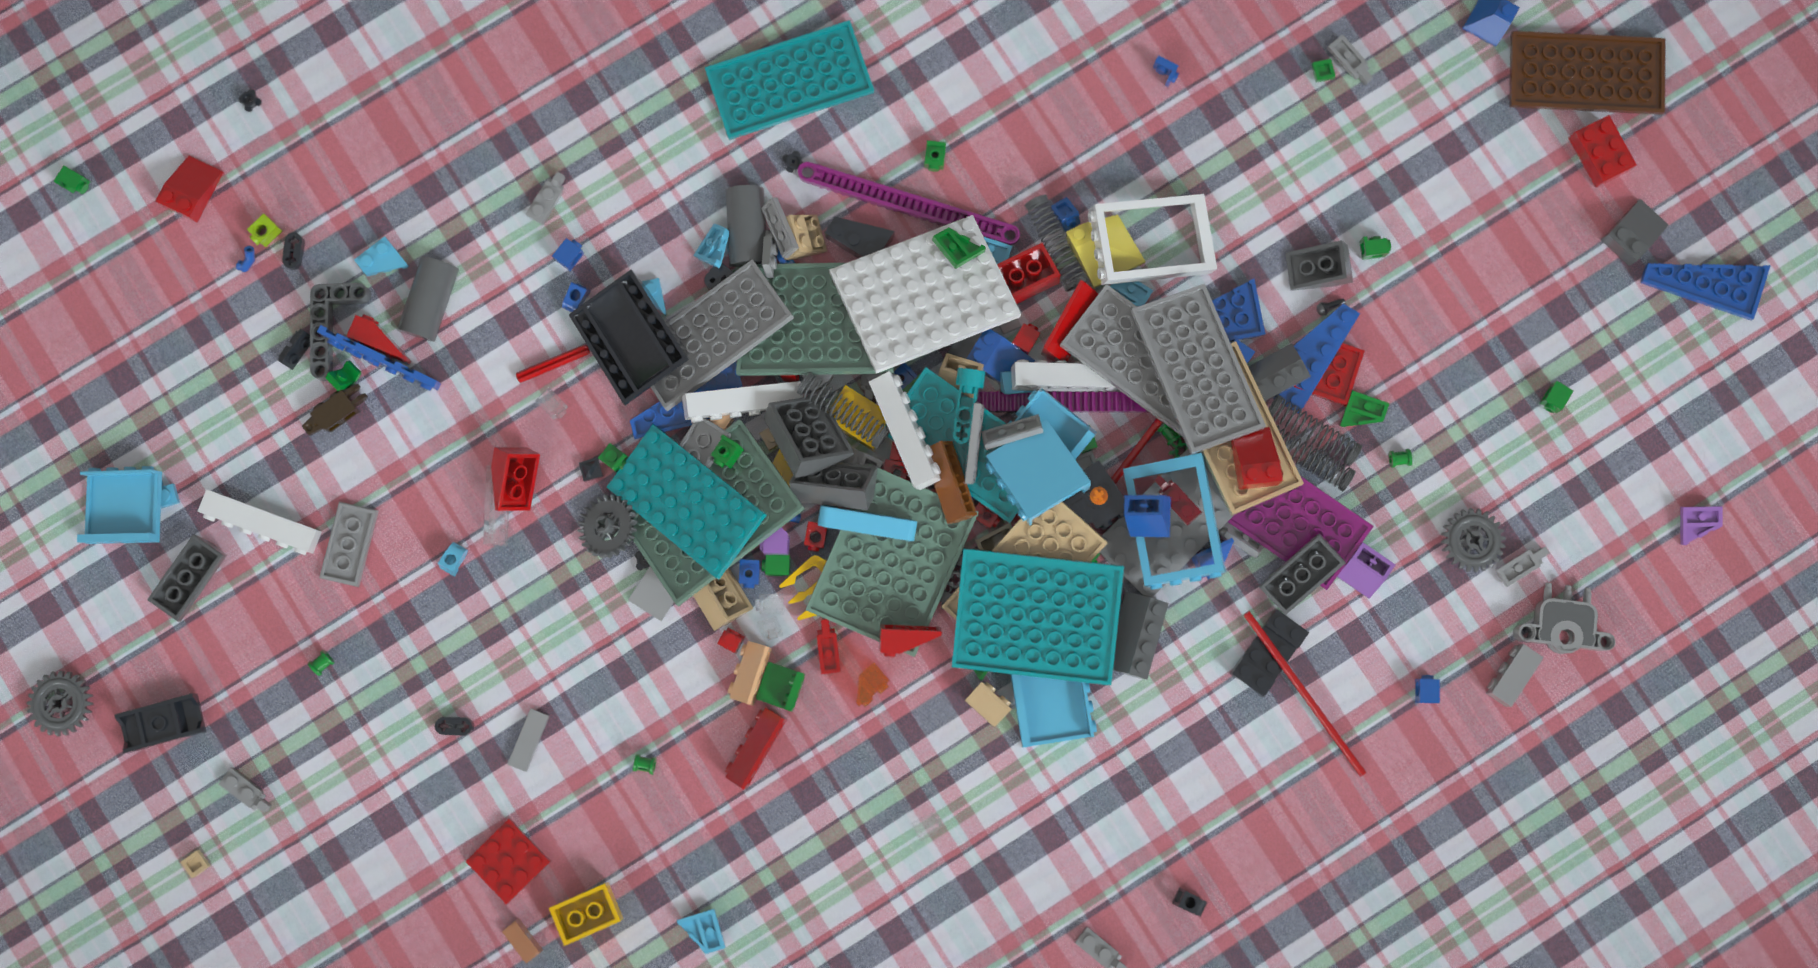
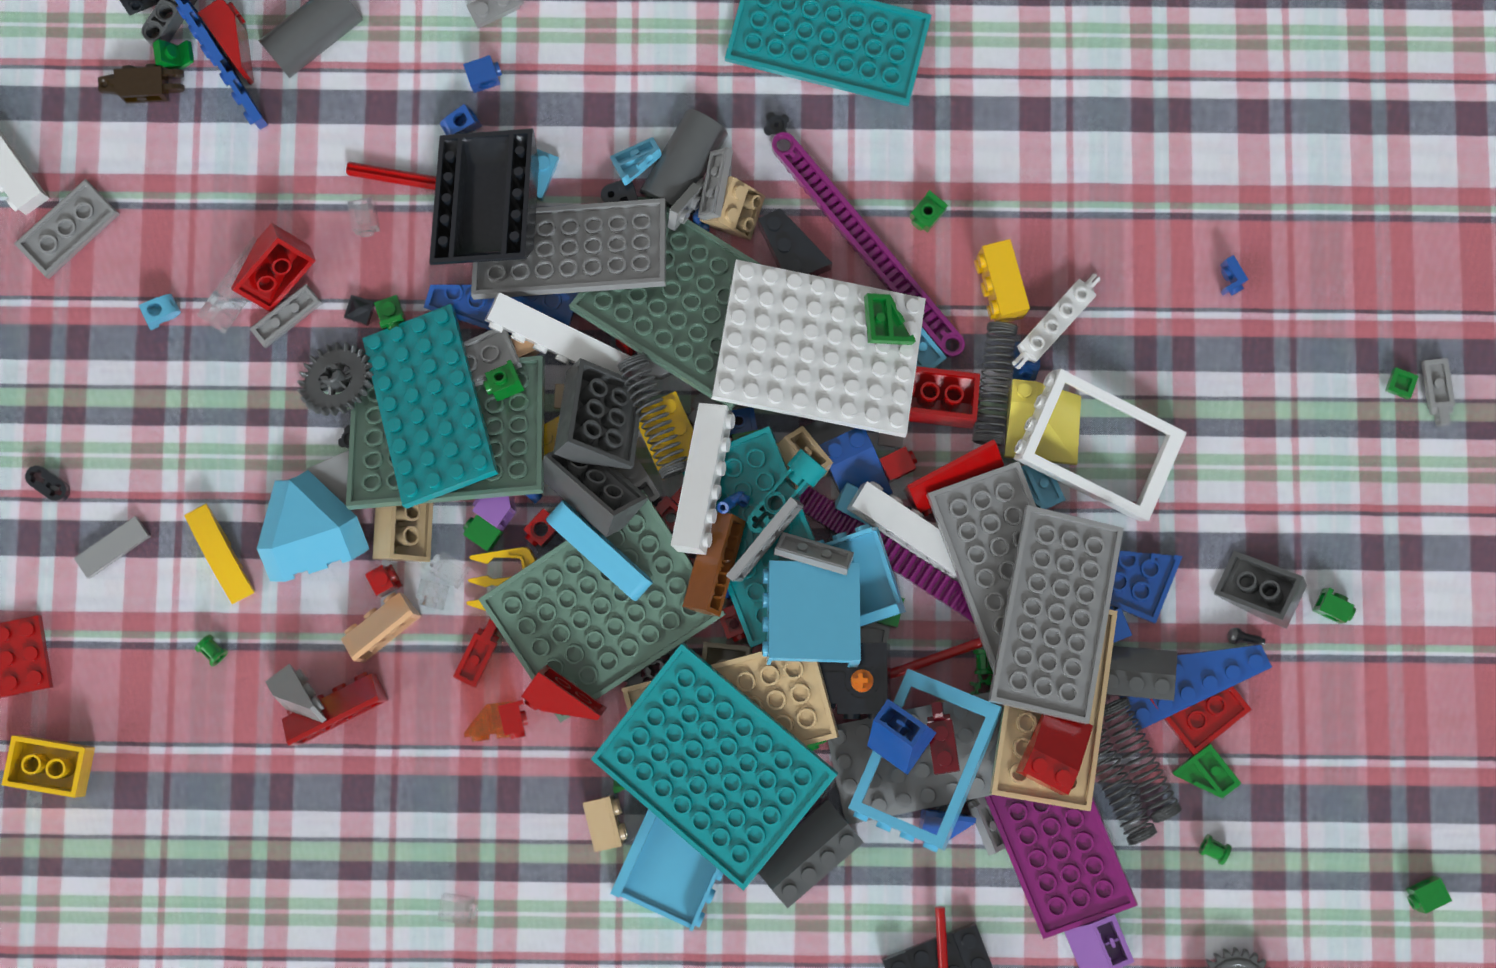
camera: 35 degrees right, 0 degrees up
(542, 506) = (285, 316): none -> light grey tile
(606, 695) = (219, 553): none -> yellow slope
(656, 639) = (307, 529): none -> medium azure panel
(704, 930) = (157, 864): medium azure wing -> none
(723, 755) = (295, 694): none -> light grey slope
(754, 566) = (457, 519): blue brick -> none
(780, 686) = (403, 662): green bracket -> none
(884, 672) = (513, 719): none -> red brick
(934, 432) = (738, 498): none -> blue arm
(1016, 171) = (1002, 282): none -> yellow brick
(1069, 174) = (1056, 321): none -> white plate
(1302, 573) = (1027, 905): dark grey brick -> none

